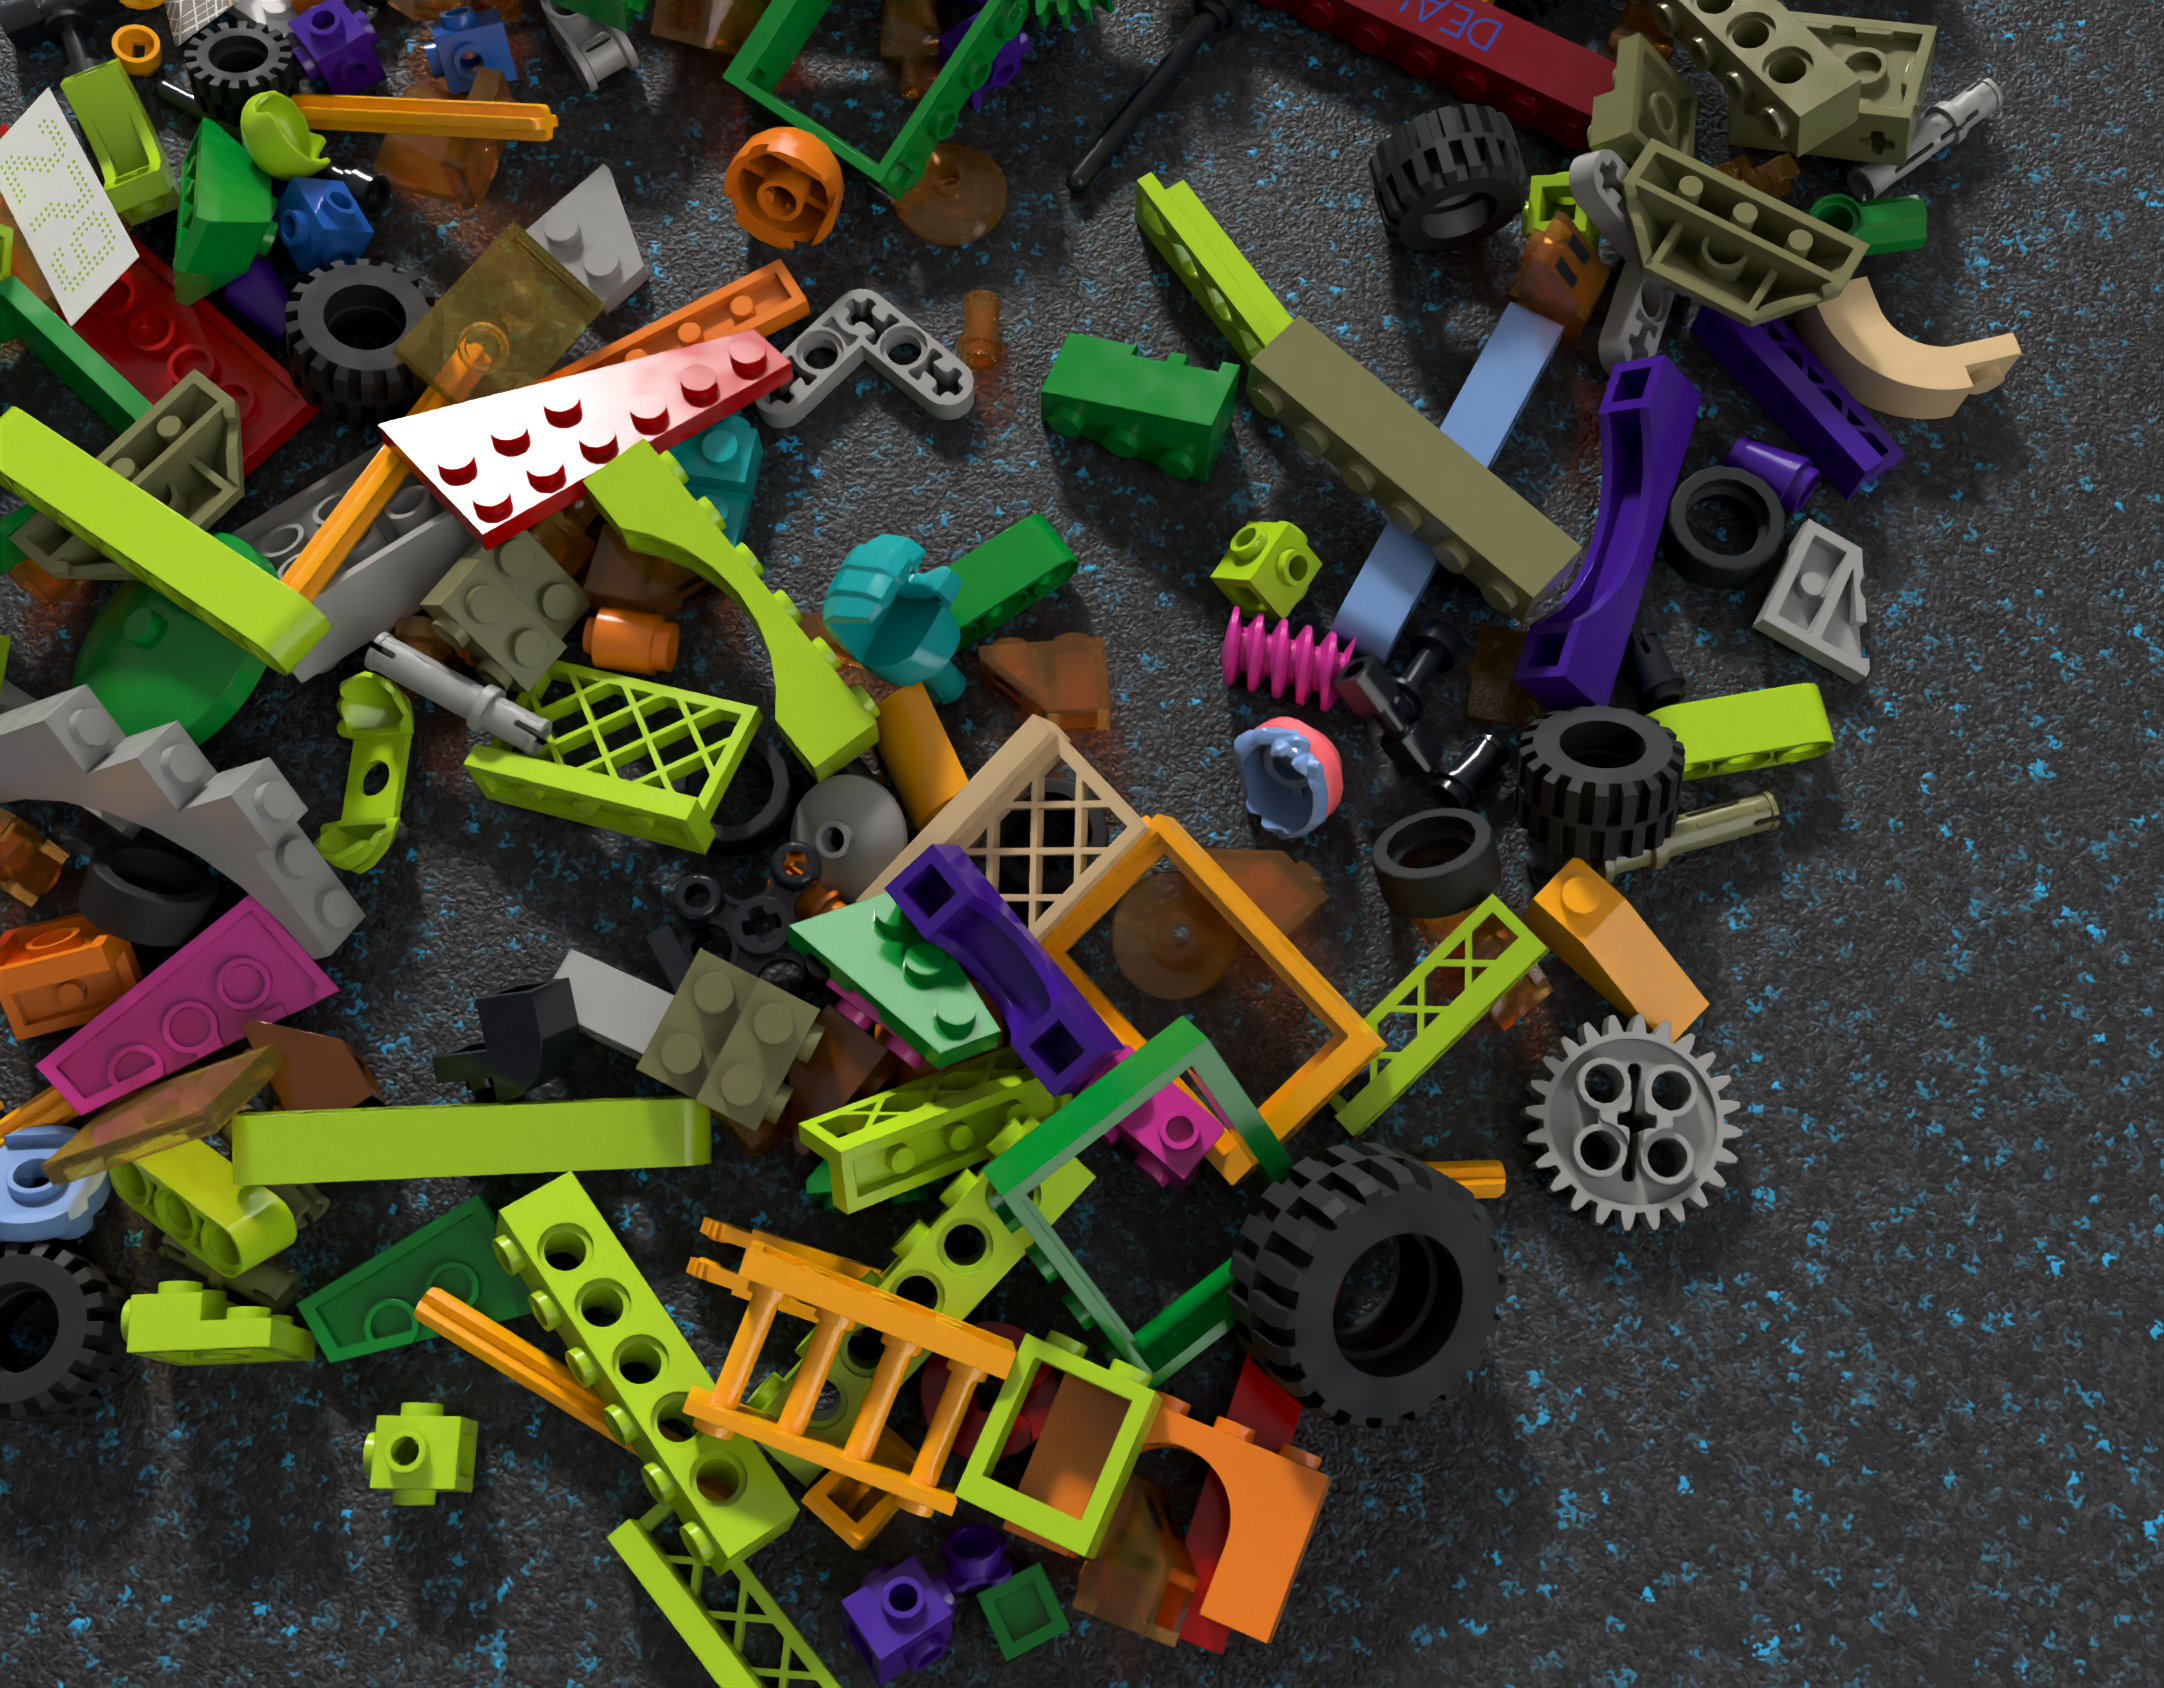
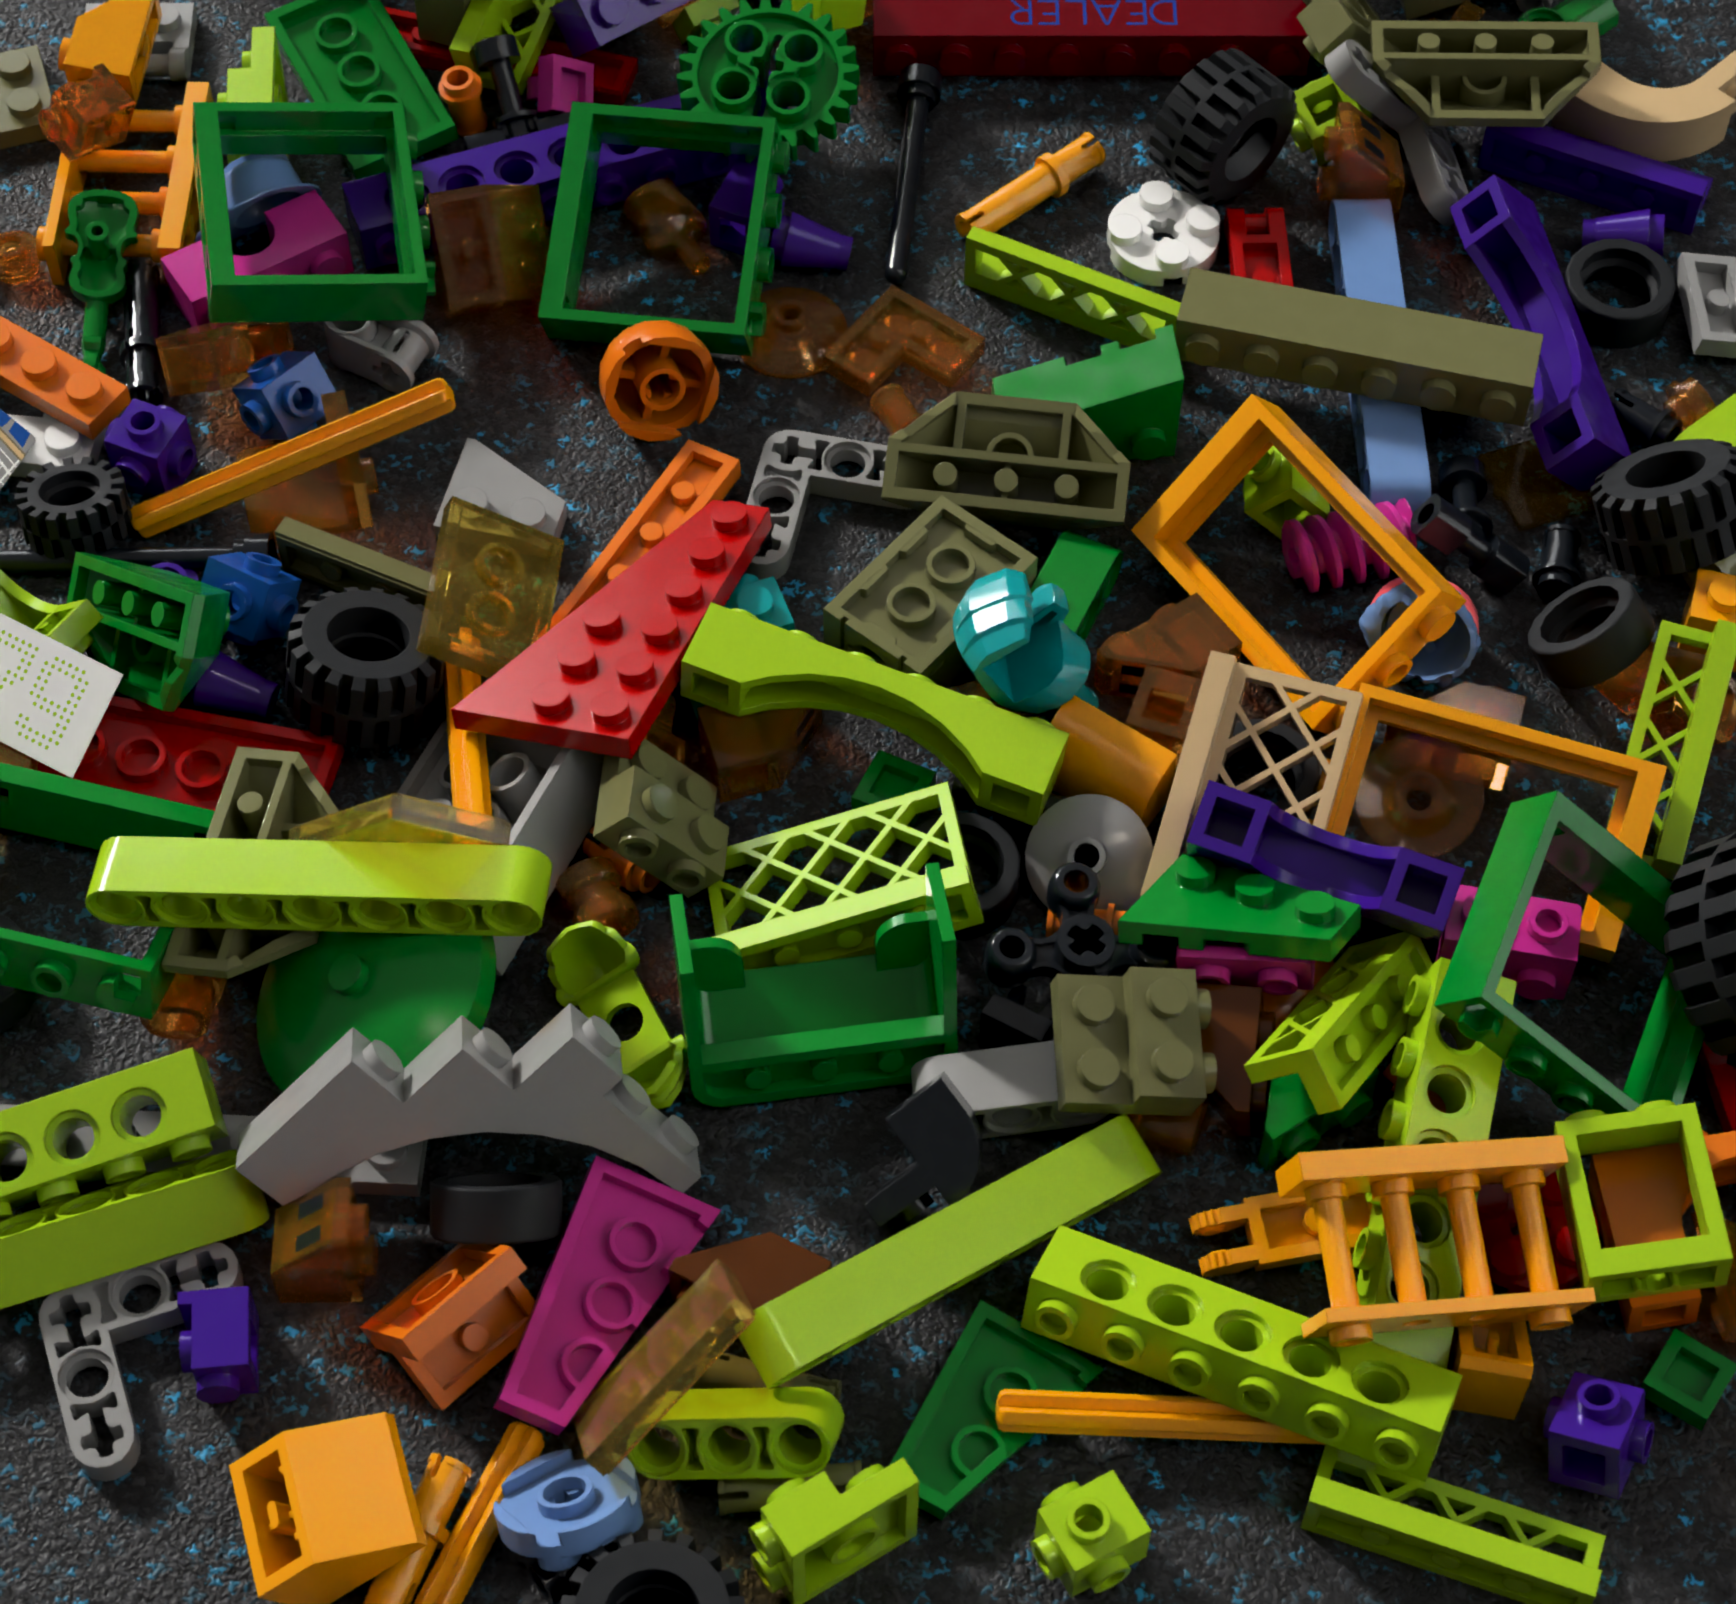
camera: 30 degrees left, 15 degrees down
(230, 528) = (405, 821): none -> clear yellow tile
(280, 138) = (168, 536): lime hair -> none
(418, 230) = (346, 564): none -> olive tile
(481, 706) = (649, 899): light grey pin -> none
(496, 856) = (818, 1021): none -> green windscreen
(631, 641) = (780, 798): orange brick -> none
(733, 677) = (891, 777): none -> green plate
(848, 502) = (909, 593): none -> olive piece
(974, 1558) = (1619, 1356): dark purple plate -> none
(990, 726) = (1161, 718): none -> clear orange brick
(1013, 115) = (809, 244): none -> dark purple cone
(1018, 422) = (1009, 463): none -> olive wedge
(1032, 241) = (900, 331): none -> clear orange plate
(1159, 543) = (1213, 477): none -> light orange door
(1251, 154) = (1047, 178): none -> light orange pin
(1344, 229) = (1168, 211): none -> white plate
(1409, 328) = (1258, 245): none -> red plate
(1704, 676) = (1688, 401): none -> clear orange plate

